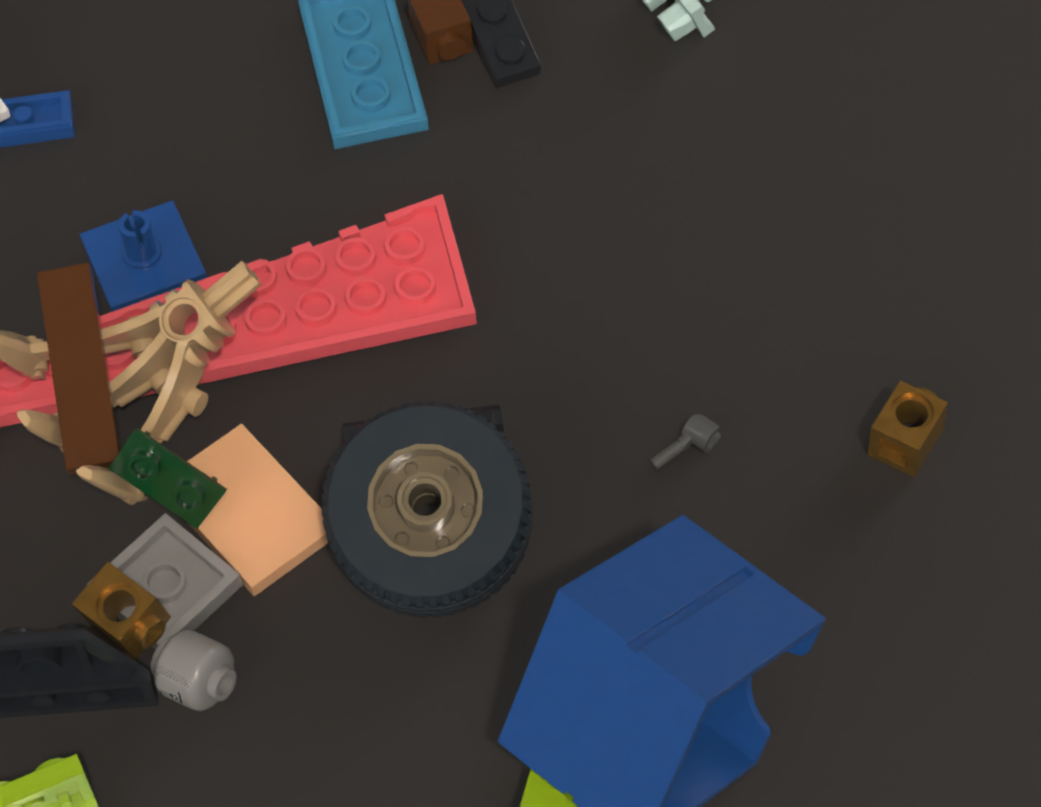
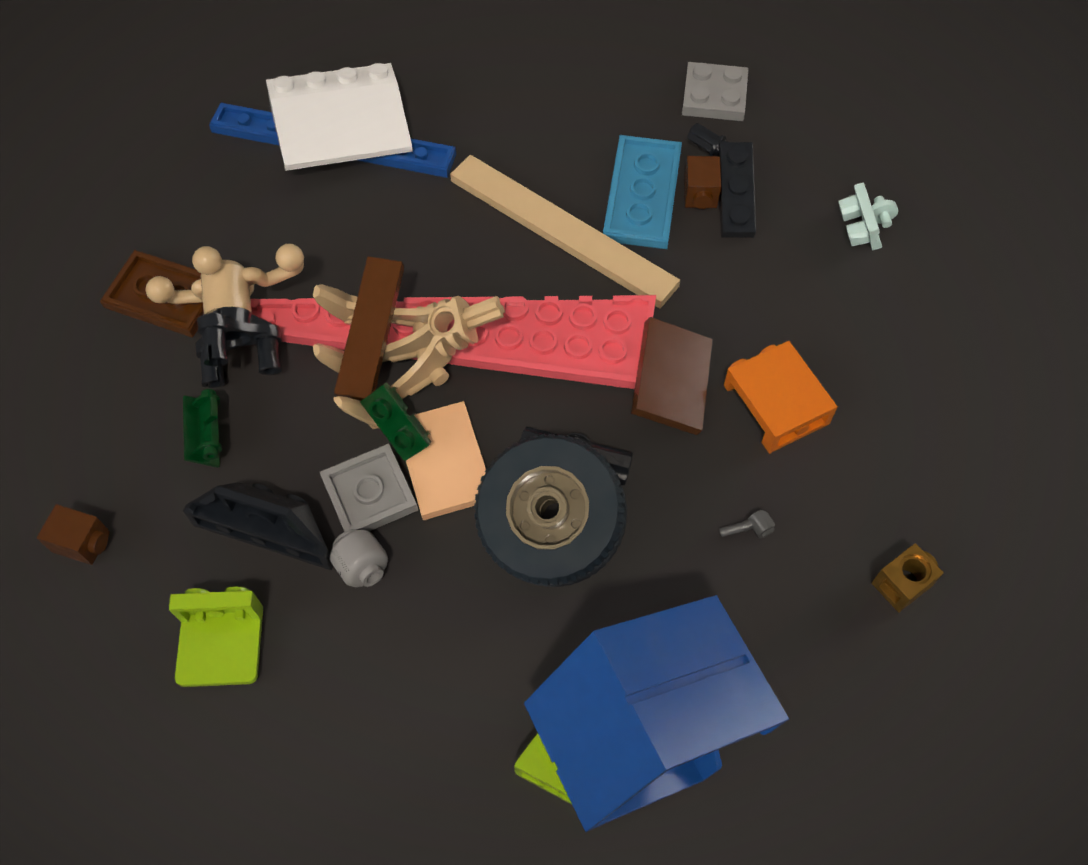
camera: 20 degrees right, 5 degrees up
(108, 596) = (318, 491): pearl gold brick -> none
(142, 255) = (452, 268): blue tile -> none
(272, 151) = (565, 230): none -> tan tile
(509, 290) = (672, 376): none -> reddish brown tile
(661, 263) = (781, 394): none -> orange panel

